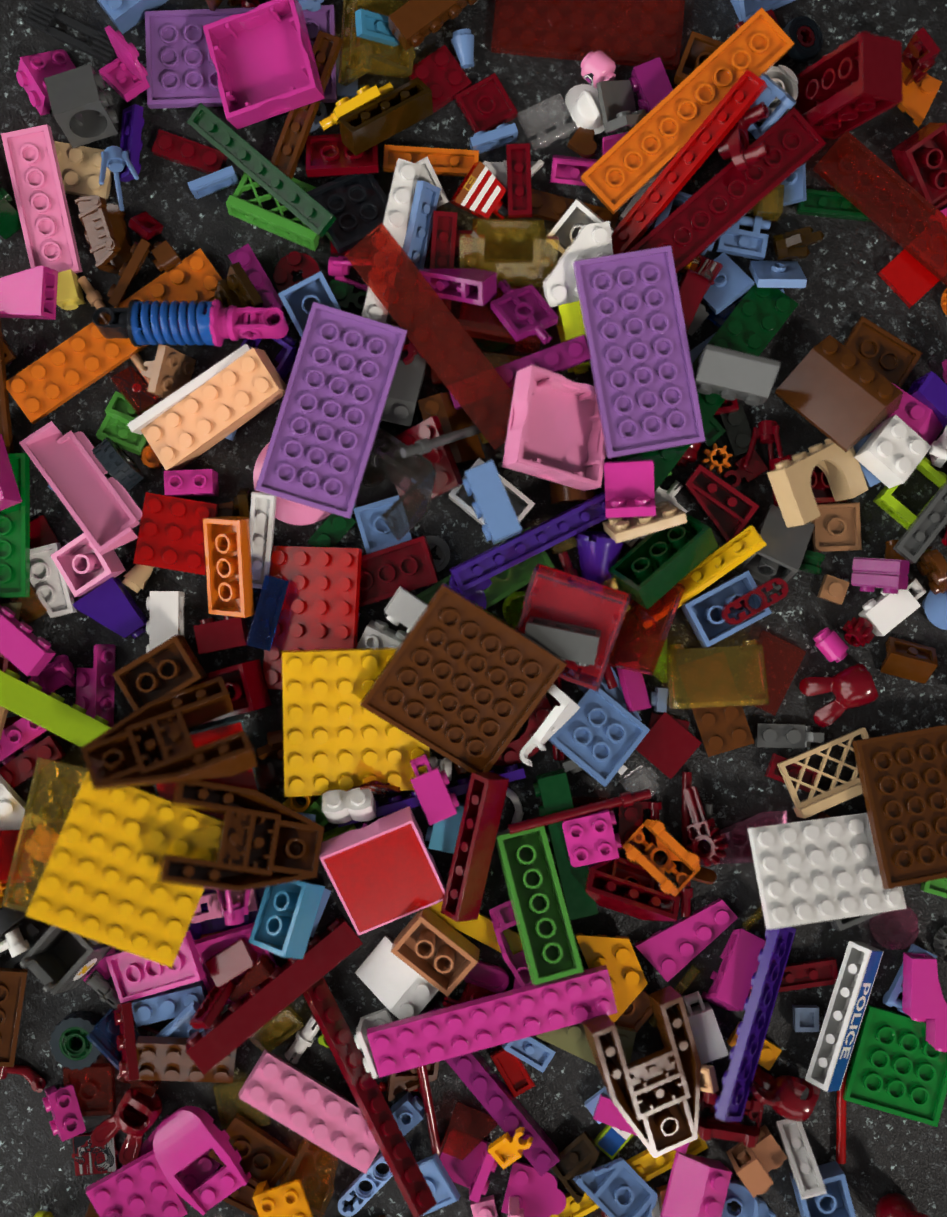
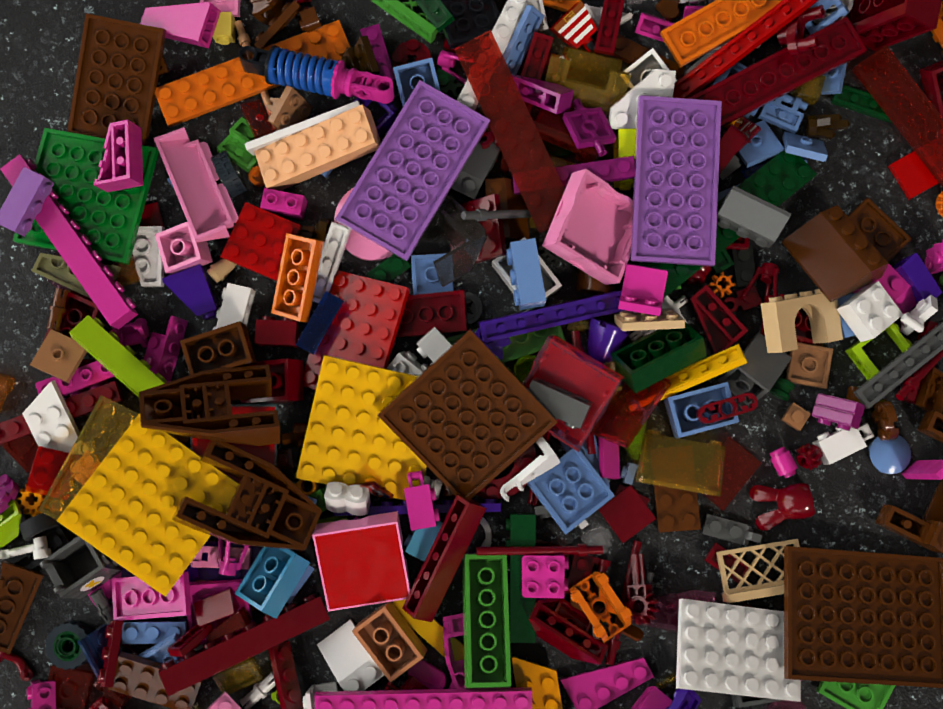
camera: 15 degrees right, 5 degrees down
(909, 660) = (847, 491): reddish brown panel -> none

